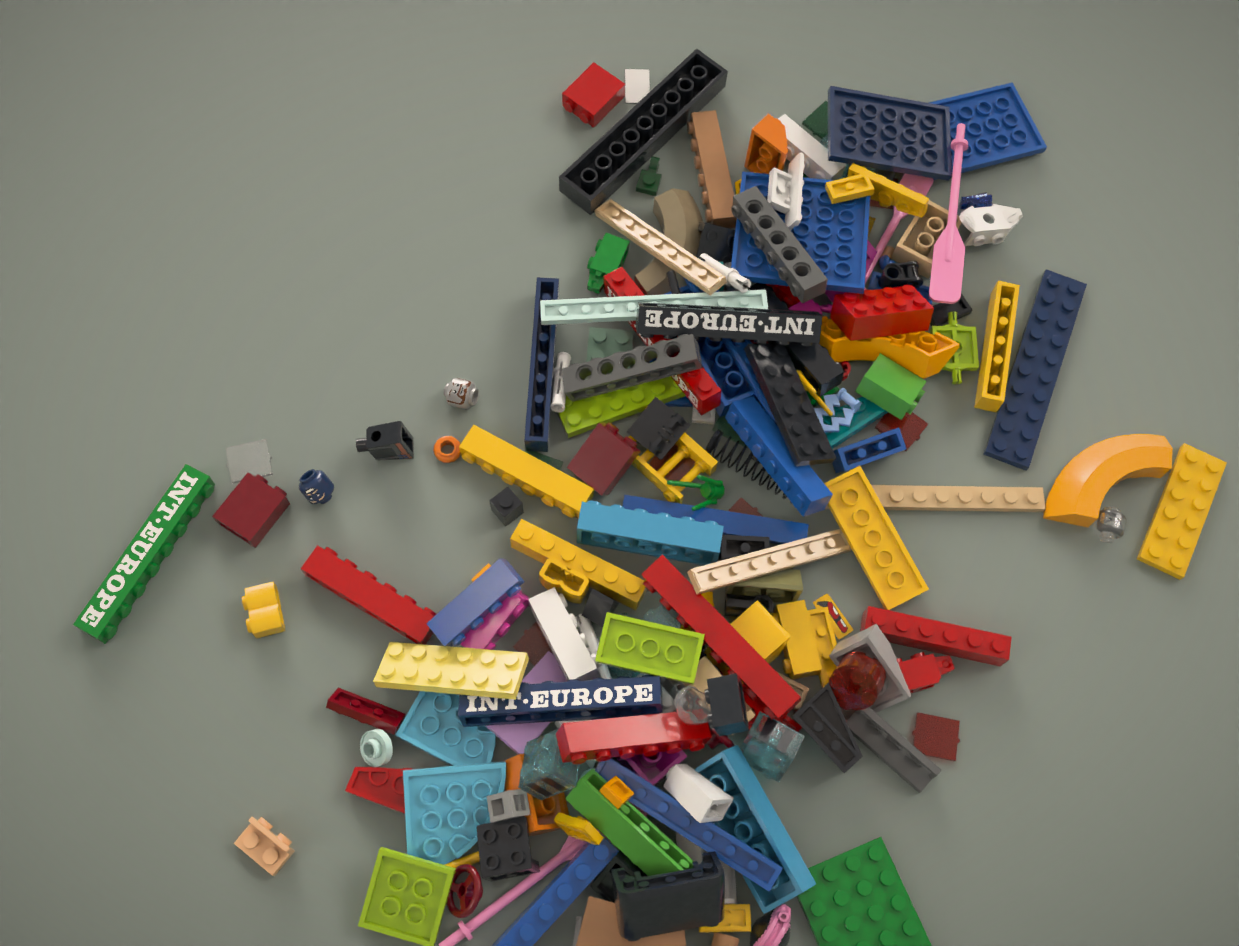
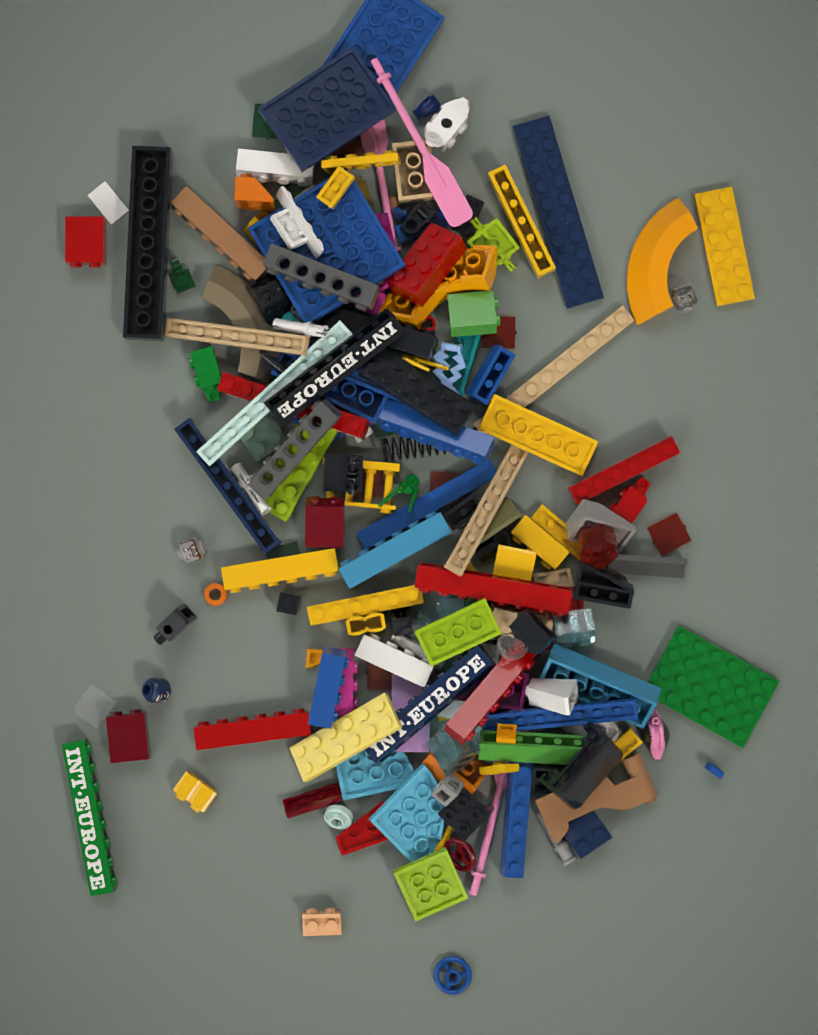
camera: 30 degrees left, 20 degrees up
(840, 624) = (555, 506): sticker -> none

